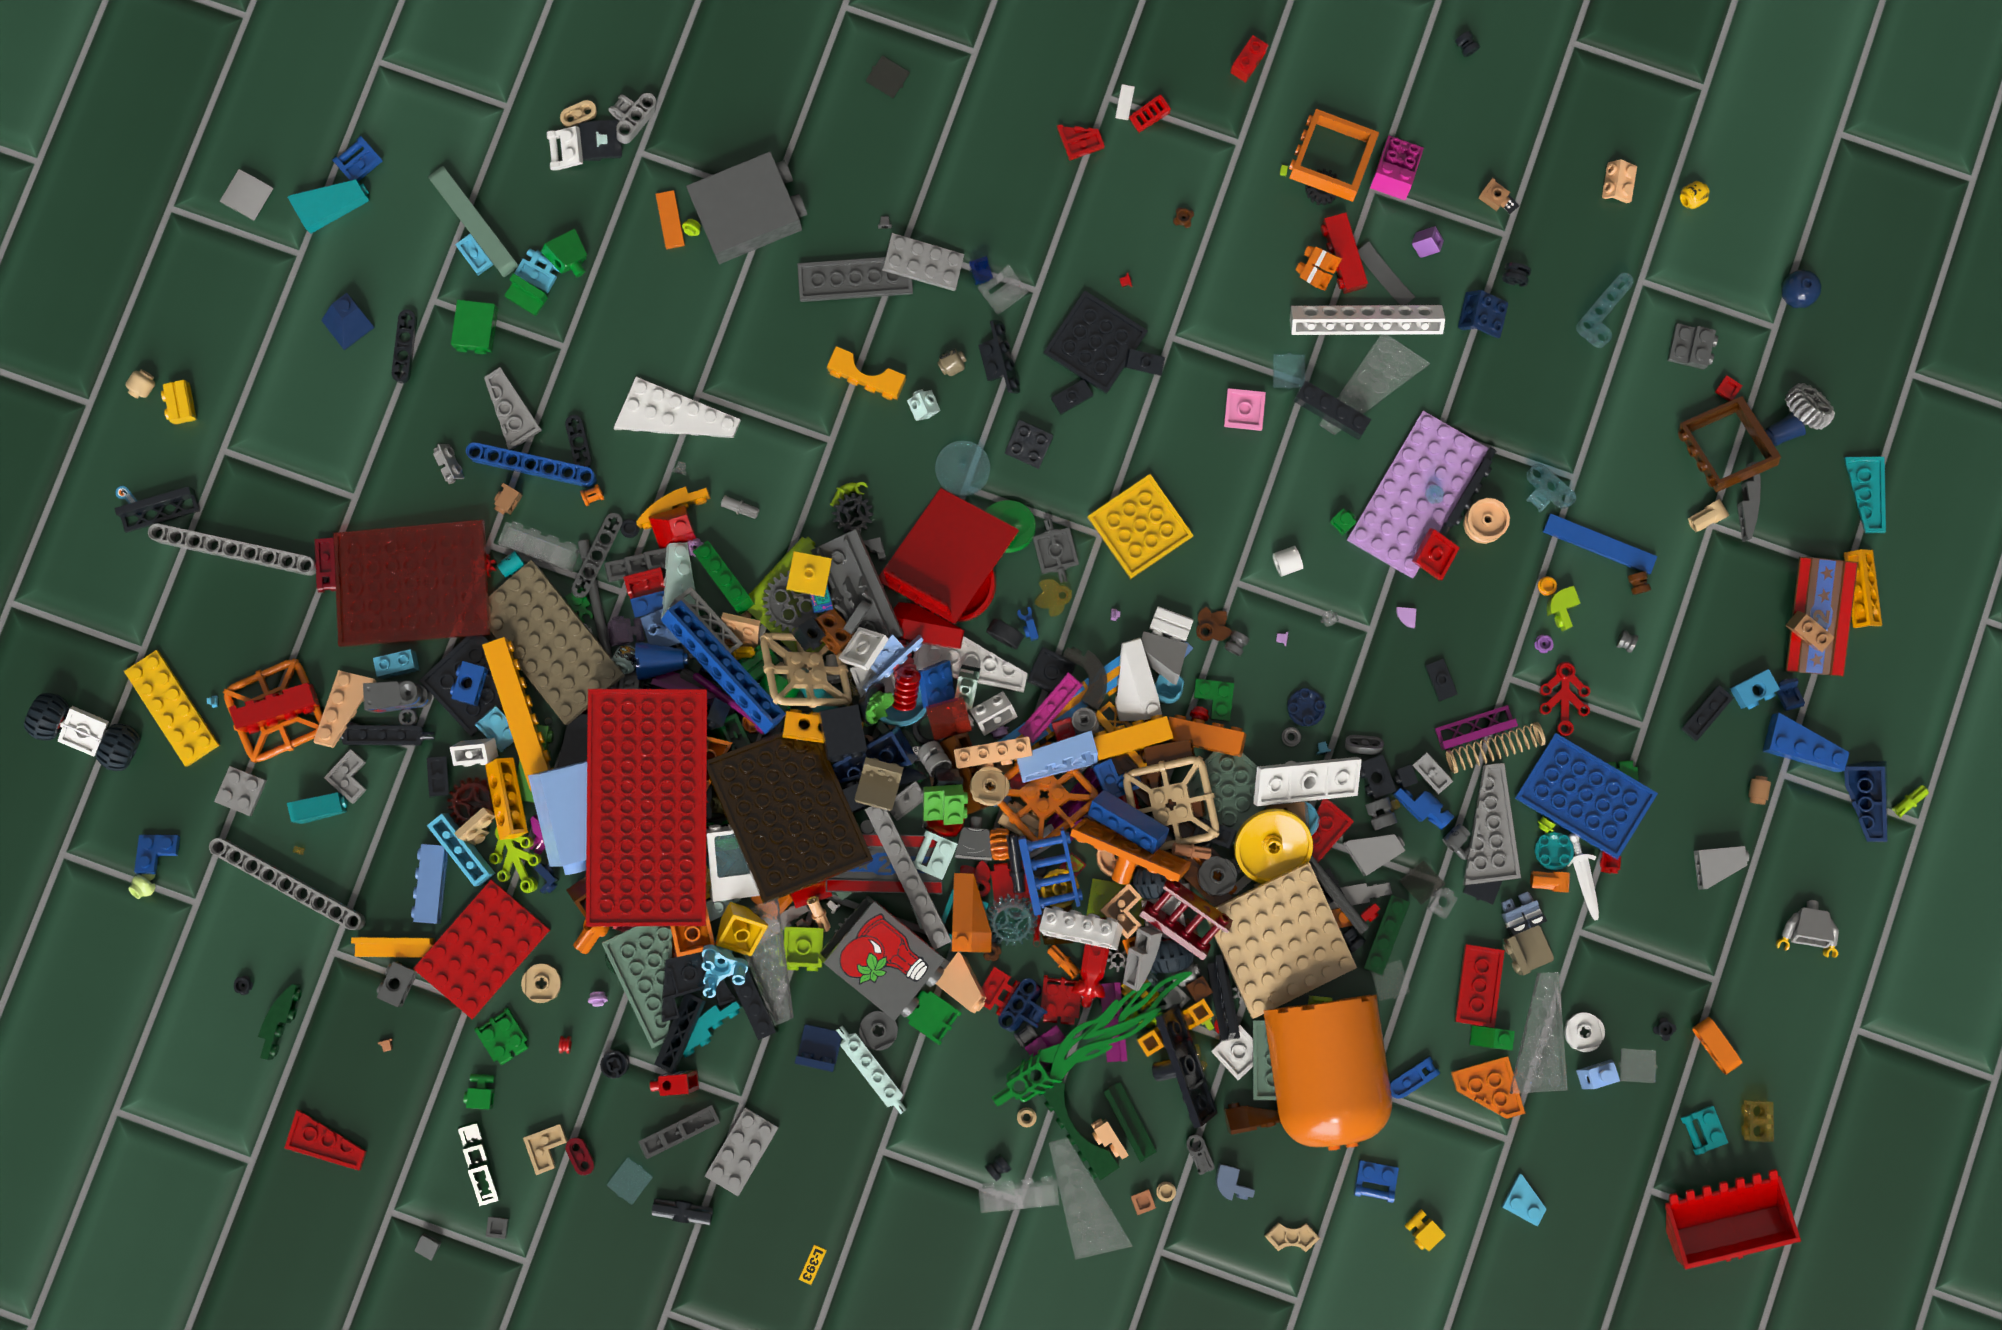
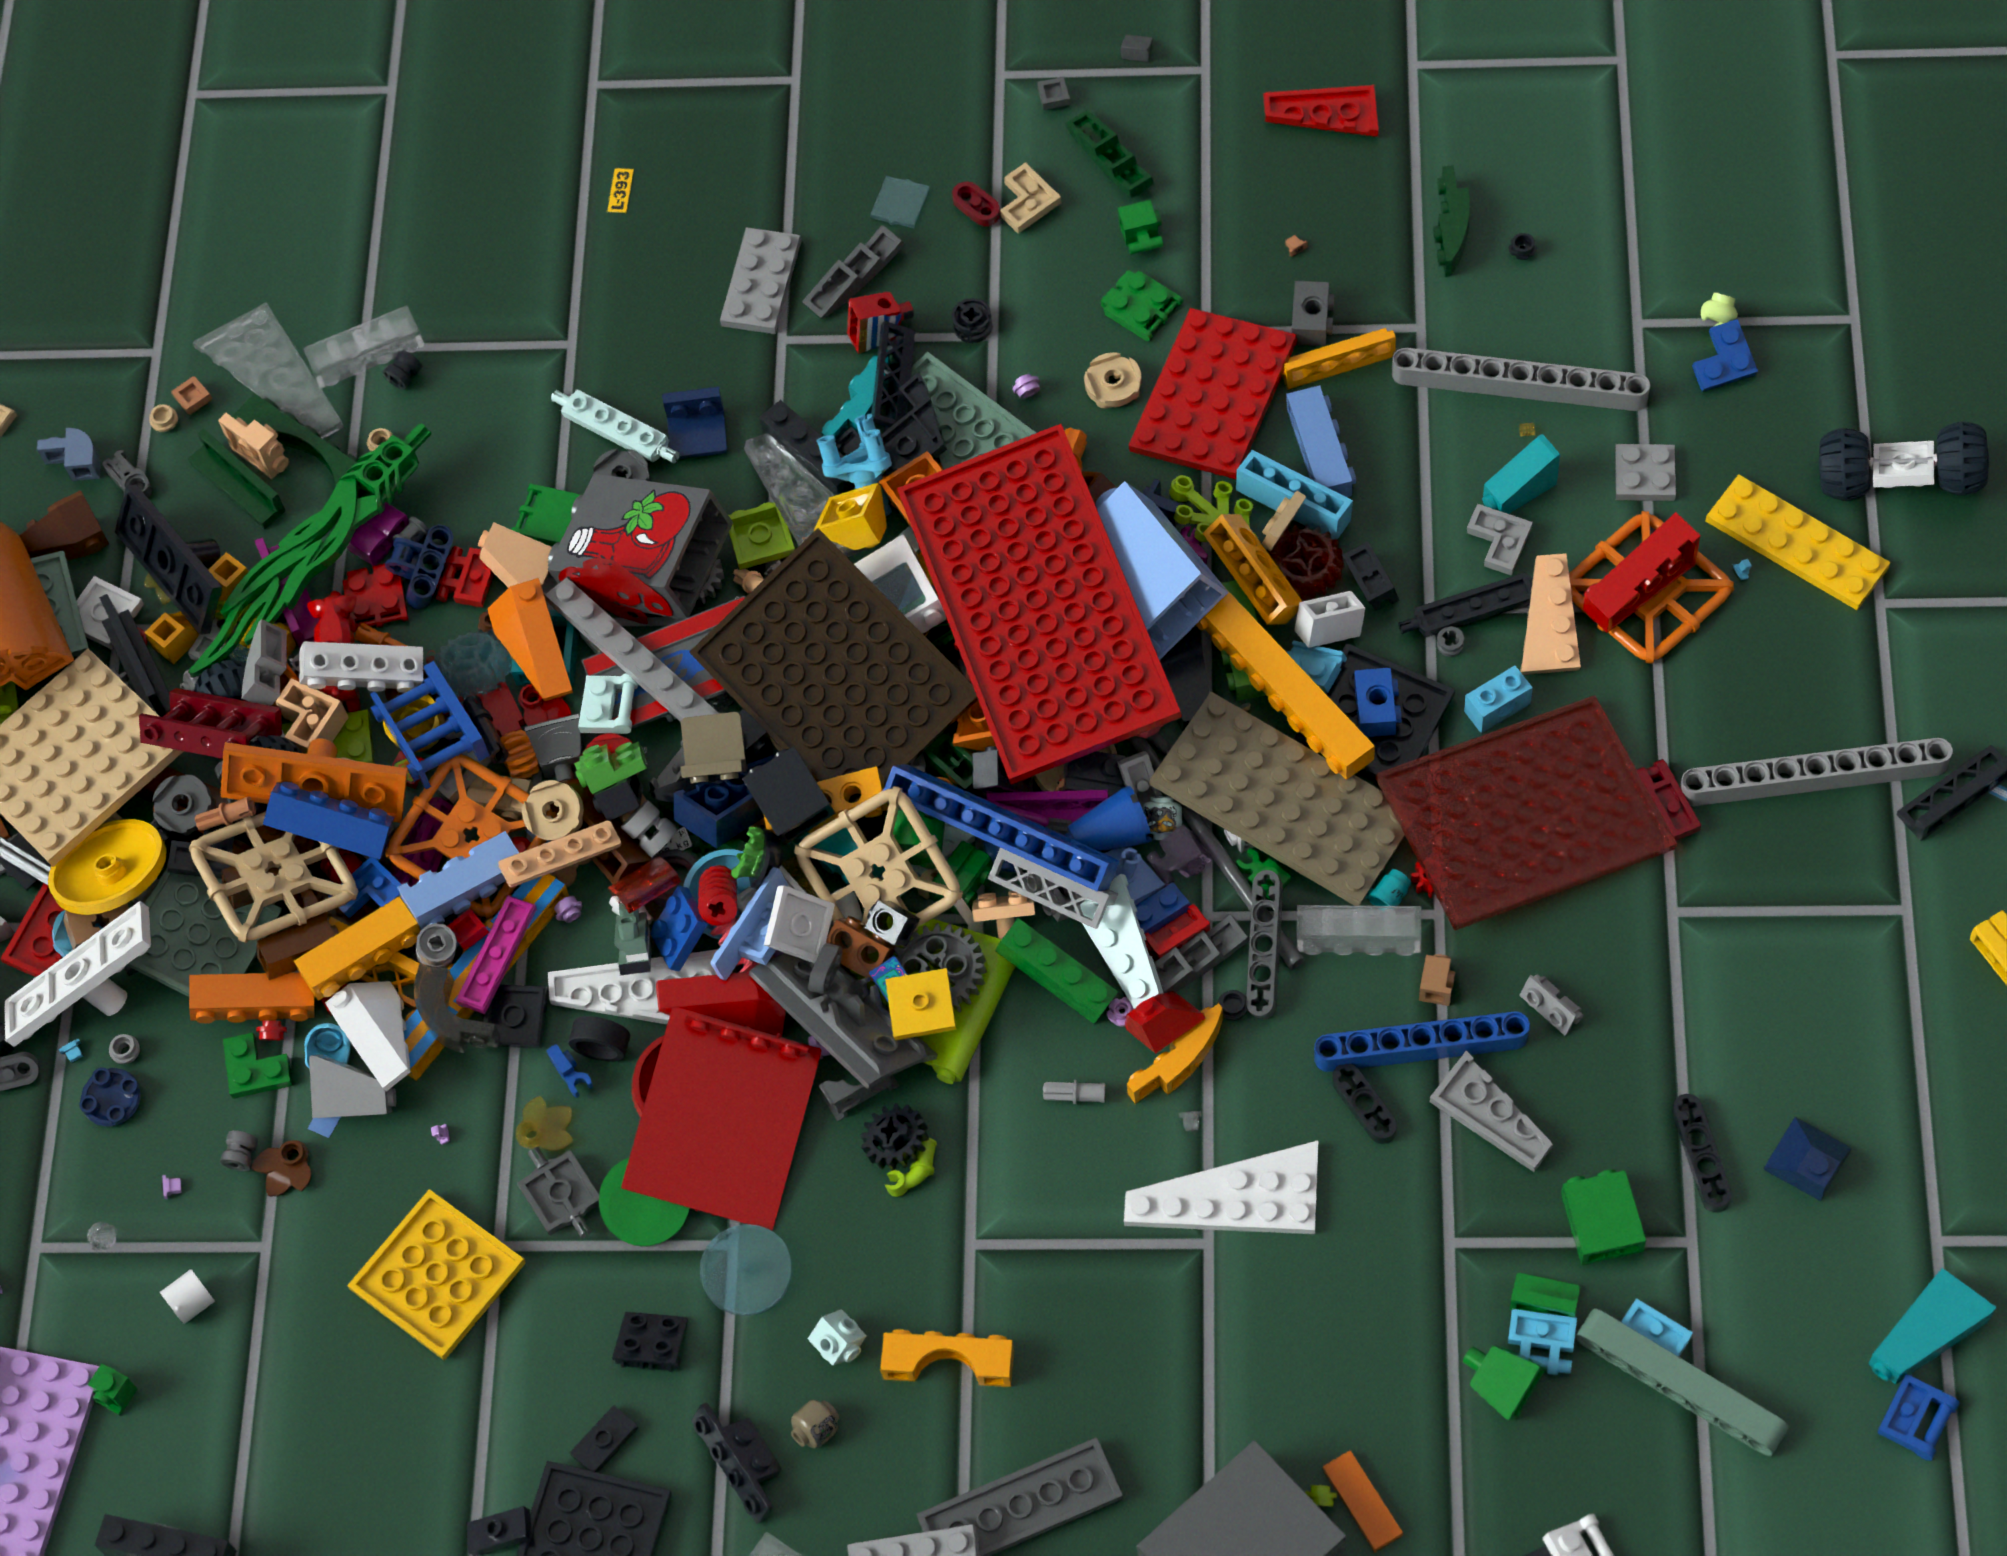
camera: 170 degrees right, 20 degrees down
(394, 696) = (1477, 649): dark grey piece -> none
(565, 1044) = (1049, 319): red bush -> none
(587, 500) = (1309, 1030): orange bush -> none
(682, 1211) = (814, 187): black piece -> none
(743, 652) = (980, 879): yellow axle -> none
(993, 713) = (583, 925): white brick -> none
(1170, 624) = (348, 1142): white brick -> none
(1198, 989) = (174, 664): reddish brown brick -> none
(1244, 409) = (315, 1513): bright pink plate -> none

